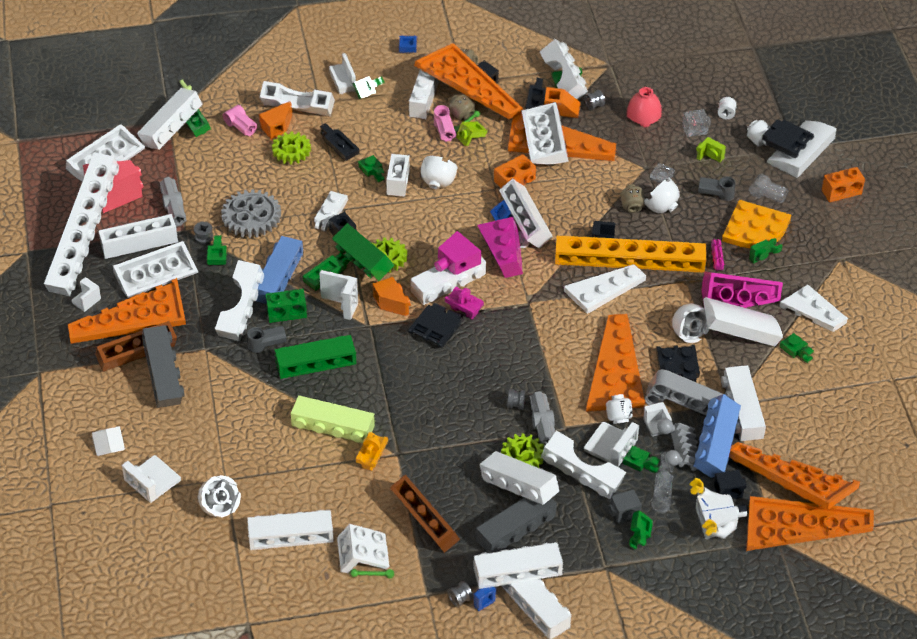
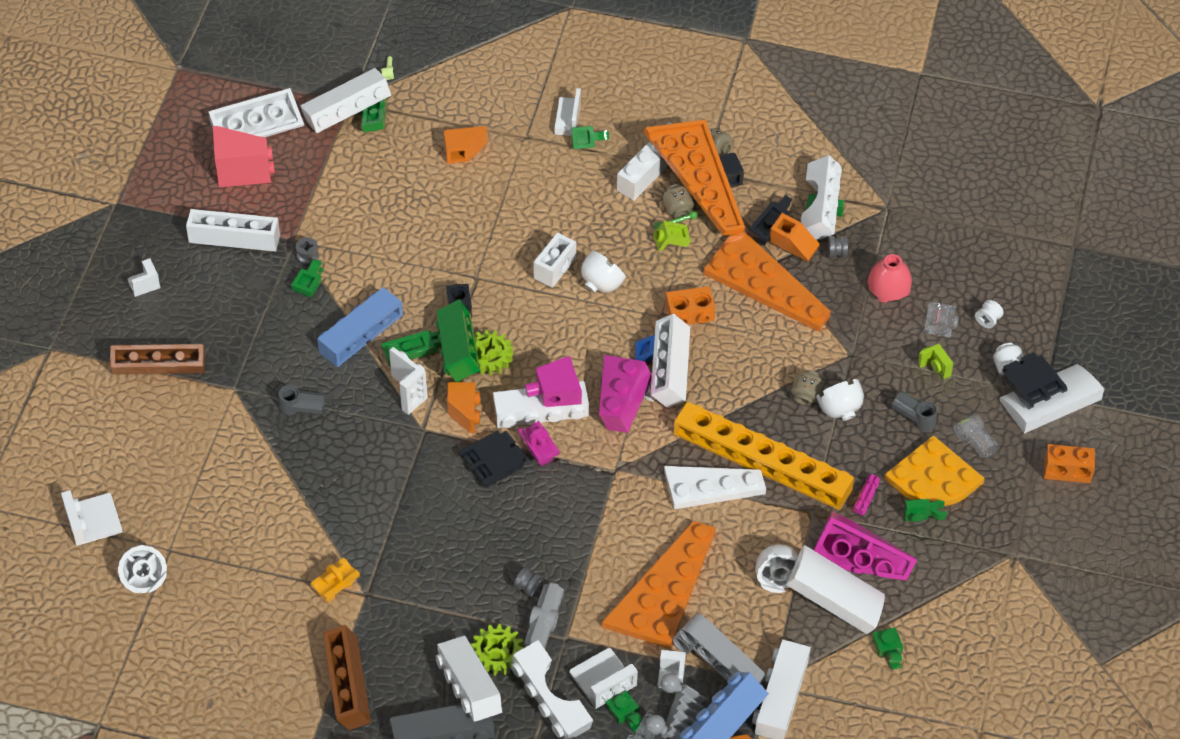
camera: 25 degrees right, 5 degrees up
(67, 247) = (176, 183): white brick -> none
(108, 441) = (71, 457): white panel -> none
(132, 315) = (180, 321): orange wing -> none
(154, 269) = (231, 275): white slope -> none
(162, 367) = (167, 394): dark grey brick -> none
(172, 200) = (295, 201): light grey piece -> none
(232, 322) = (277, 369): white arch -> none
(237, 117) = (422, 125): bright pink piece -> none
(251, 213) = (370, 246): light grey gear -> none
(286, 305) = (343, 372): green brick -> none
(290, 529) = (198, 636): white brick -> none
(291, 147) = (459, 183): lime gear -> none
(312, 102) = (502, 129): white arch -> none
(315, 356) = (340, 444): green brick -> none
(332, 206) = (460, 273): white hinge -> none
(332, 419) = (315, 526): yellowish green brick -> none
(339, 142) = (516, 195): black hinge -> none
(362, 546) = (262, 690): white bracket -> none
(372, 166) = (536, 238): green plate -> none
(389, 573) = (275, 730): bright green hinge -> none
(408, 44) = (664, 99): blue plate -> none
(443, 123) = (646, 214): bright pink piece -> none
(545, 134) = (750, 271): white slope -> none
(603, 229) = (748, 415): black panel -> none
(619, 409) = (633, 641): white head -> none
(662, 173) = (862, 369): clear plate -> none
(679, 360) = (739, 611): black plate -> none
(814, 306) = (941, 604): white wing -> none

